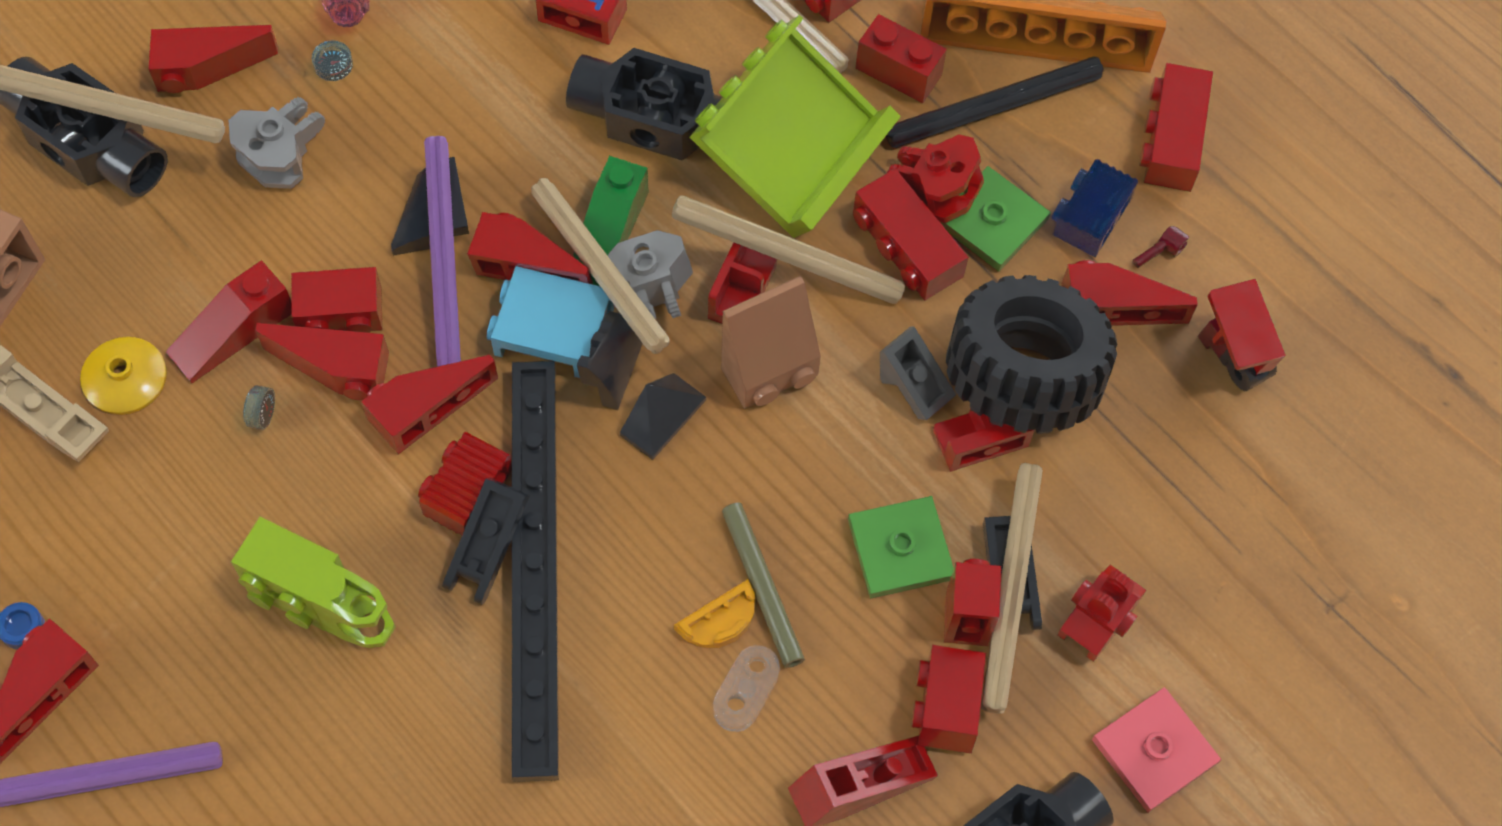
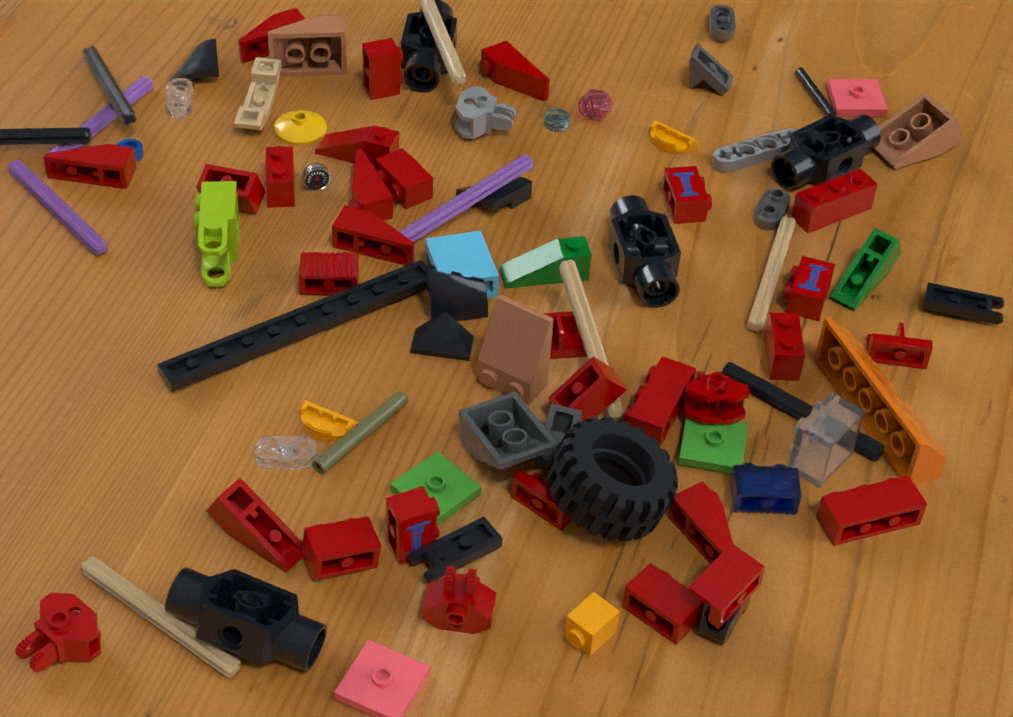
camera: 60 degrees right, 20 degrees down
(101, 211) = (382, 68): none -> red brick
(222, 528) = (249, 187): none -> red brick
(232, 452) = (280, 177): none -> red brick
(486, 537) = (298, 292): black hinge -> none
(509, 242) = (496, 228): red slope -> none
(600, 266) = (506, 261): tan axle -> none
(655, 272) = (526, 289): light grey hinge -> none
(791, 129) = (679, 305): lime panel -> none
(874, 303) = (590, 389): none -> red brick
(896, 427) = (504, 432): none -> dark grey slope
(1012, 589) = (439, 544): tan axle -> none
(1075, 108) = (825, 439): none -> clear piece
(1172, 239) = (780, 542): dark red hand -> none
(1192, 490) = (591, 624): none -> light orange brick
(1199, 402) = (662, 603): none -> red brick

